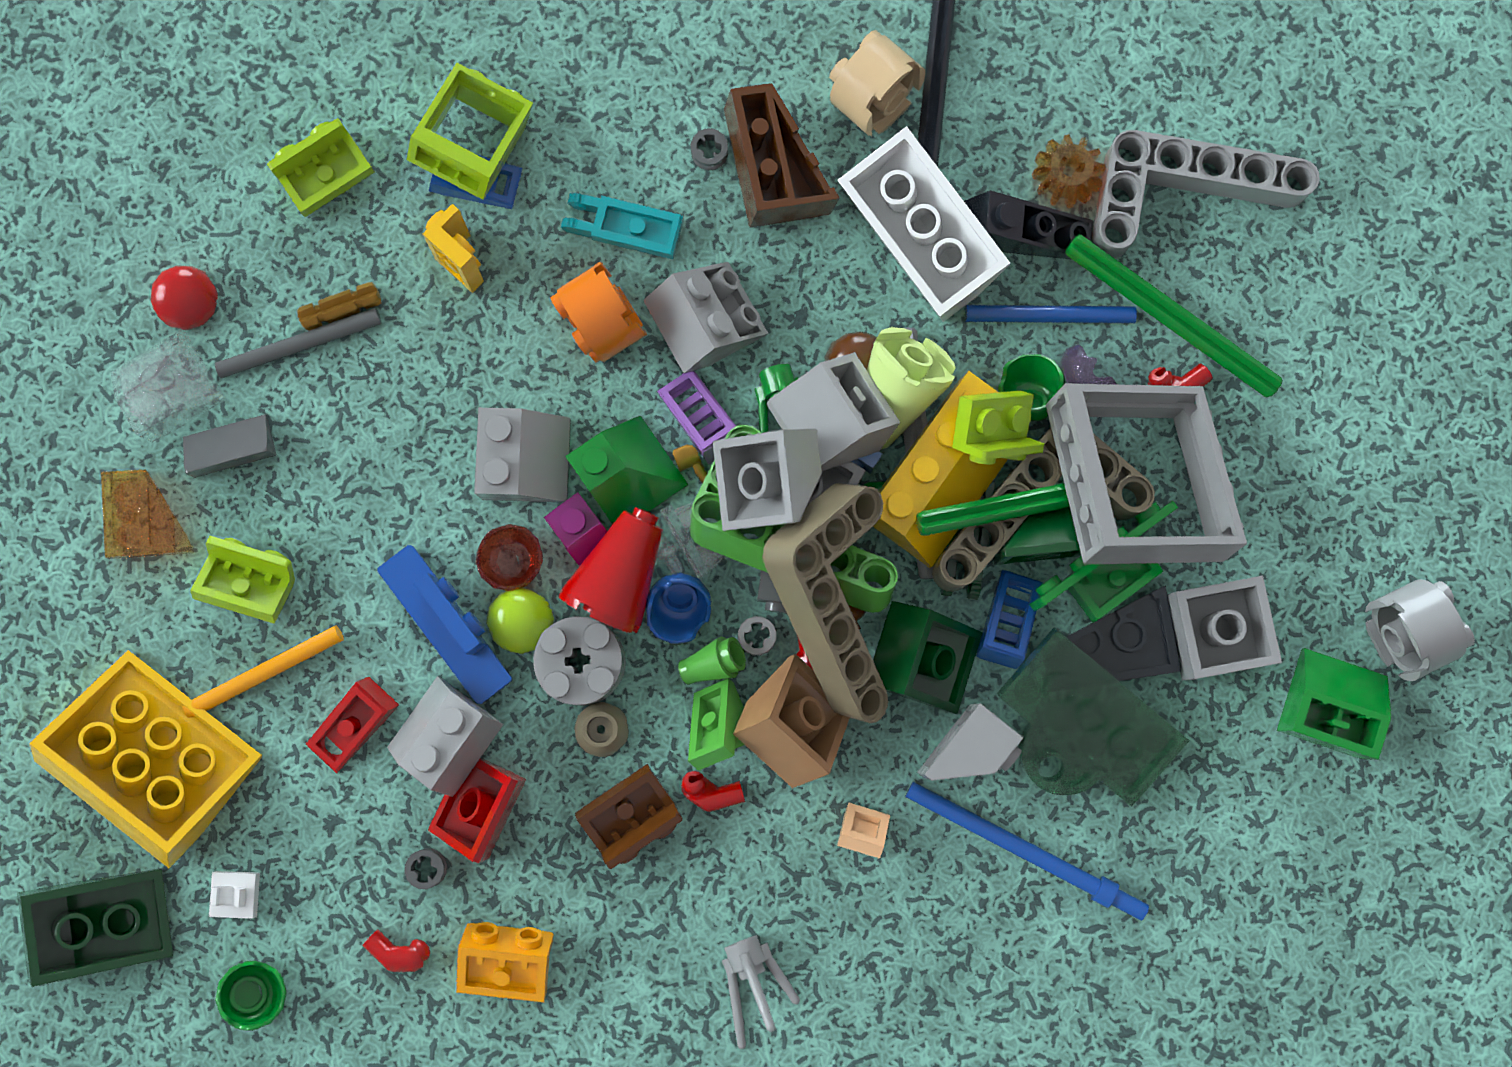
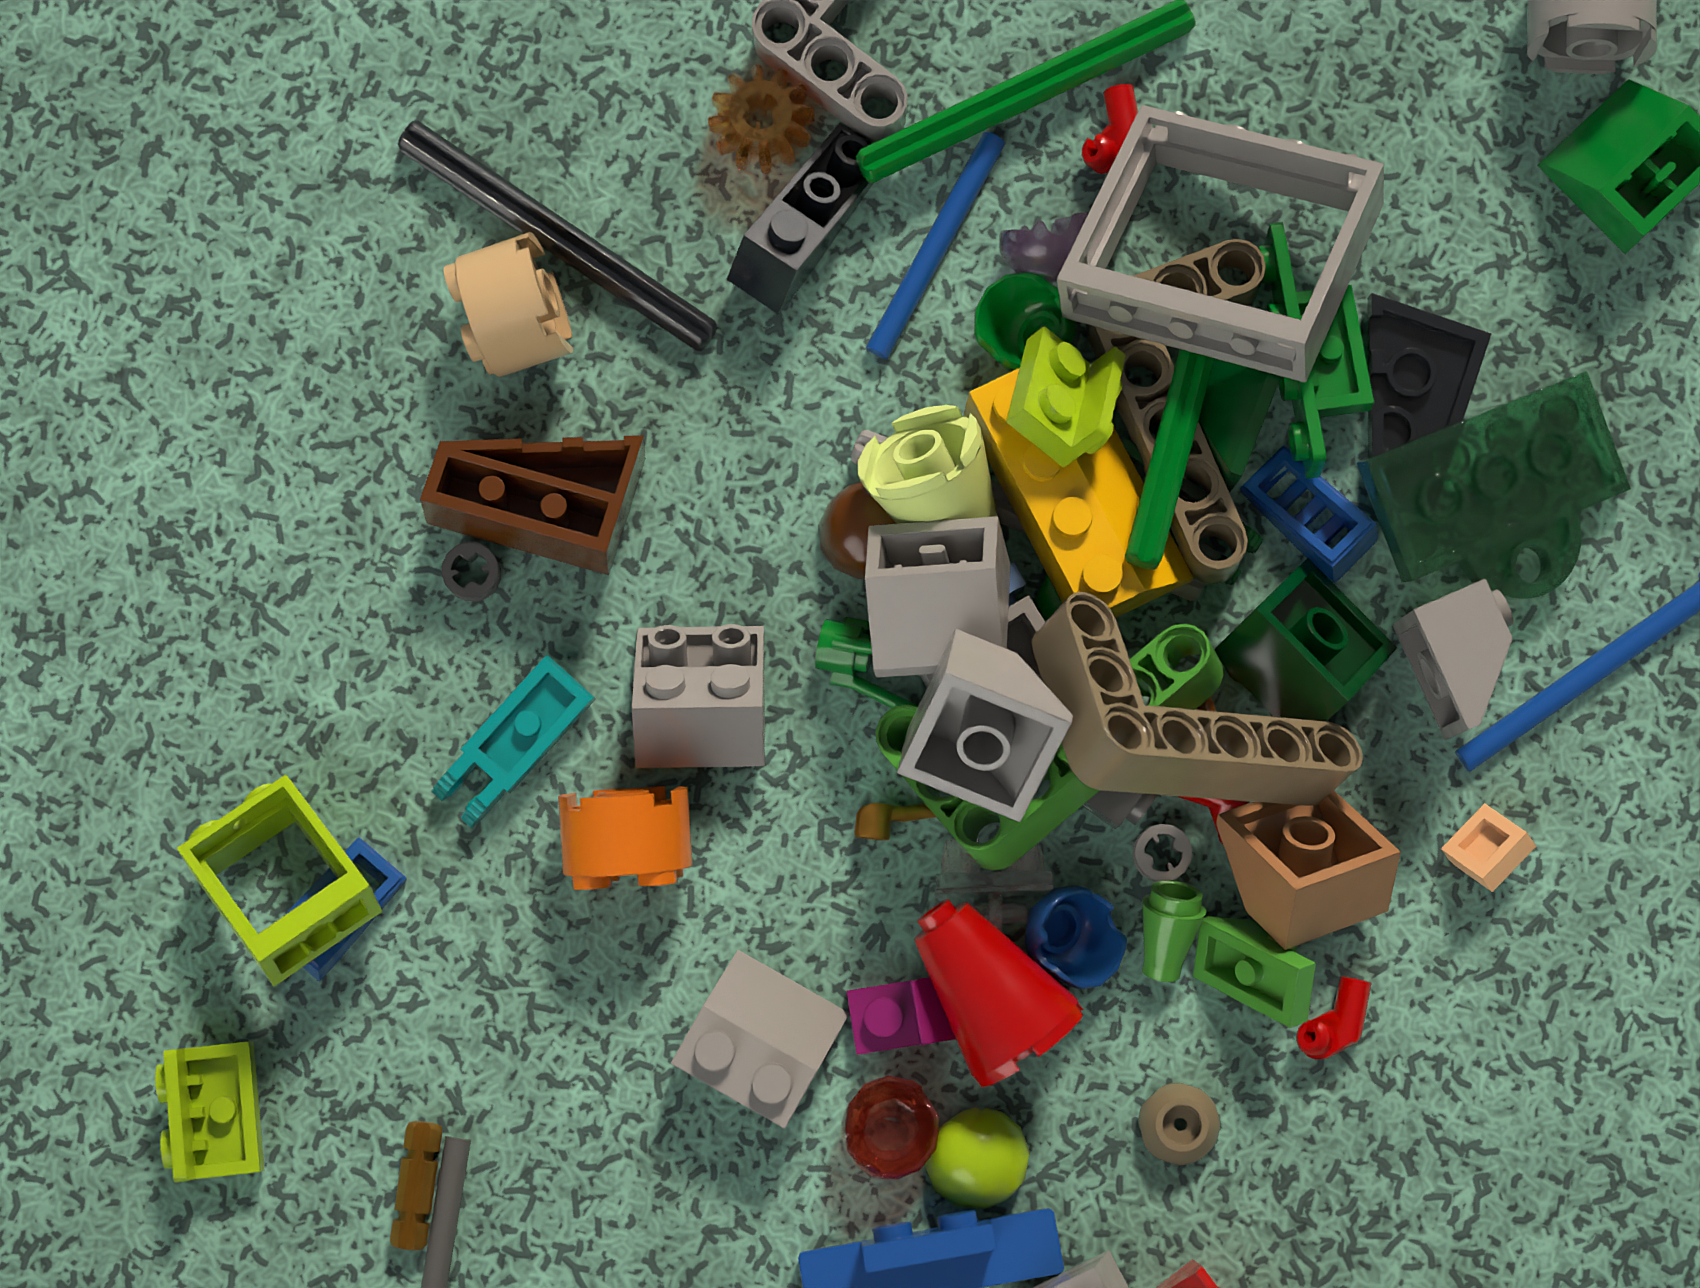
camera: 65 degrees left, 0 degrees up
(447, 240) = (442, 988): yellow bracket -> none
(561, 643) = (1093, 1140): light grey brick -> none
(626, 469) = (854, 909): green slope -> none
(629, 817) = (1317, 1145): reddish brown bracket -> none
(703, 438) = (881, 771): medium lavender slope -> none
(747, 960) = (1577, 1088): light grey plant -> none
(924, 223) = (737, 343): white slope -> none
(1223, 628) = (1467, 250): light grey brick -> none

